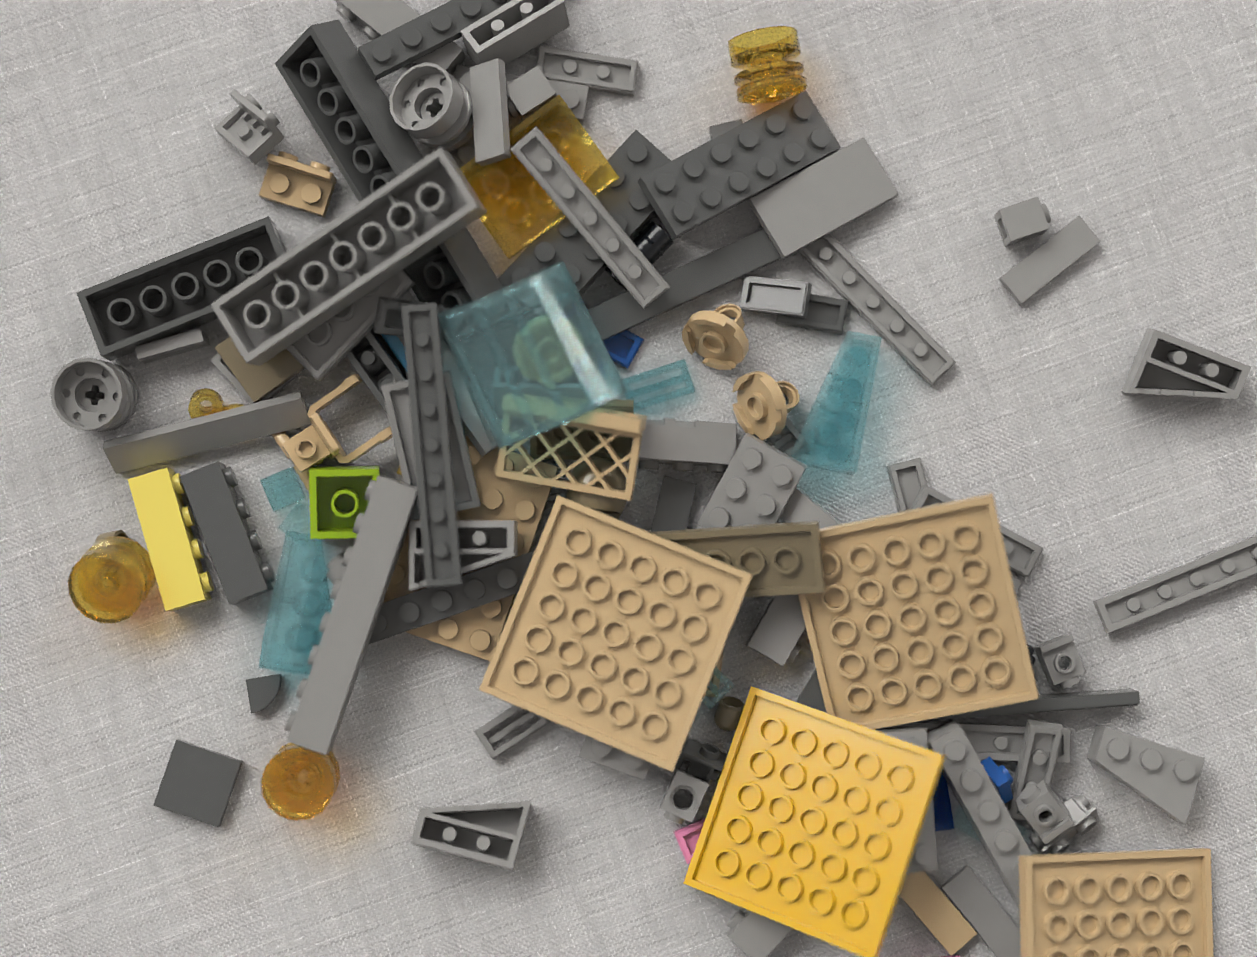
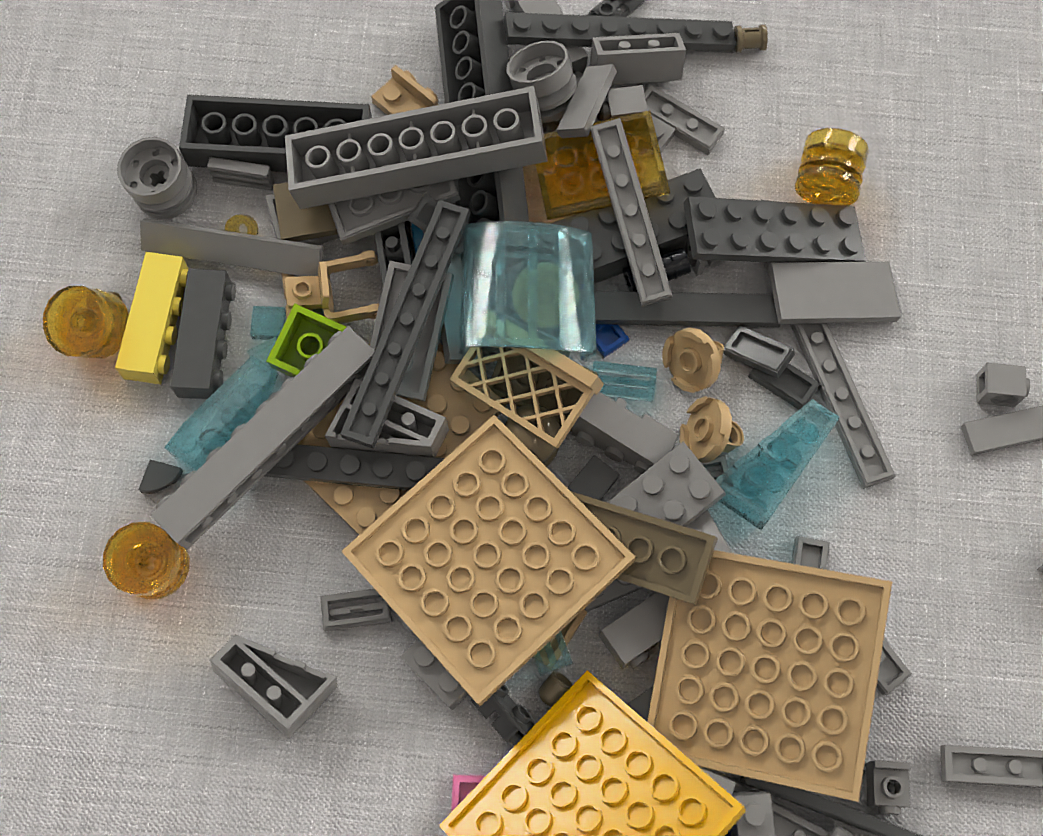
camera: 25 degrees right, 15 degrees down
(198, 783) = (60, 528): dark grey tile -> none
(250, 129) = (391, 45): light grey bracket -> none
(683, 780) = (485, 729): light grey brick -> none

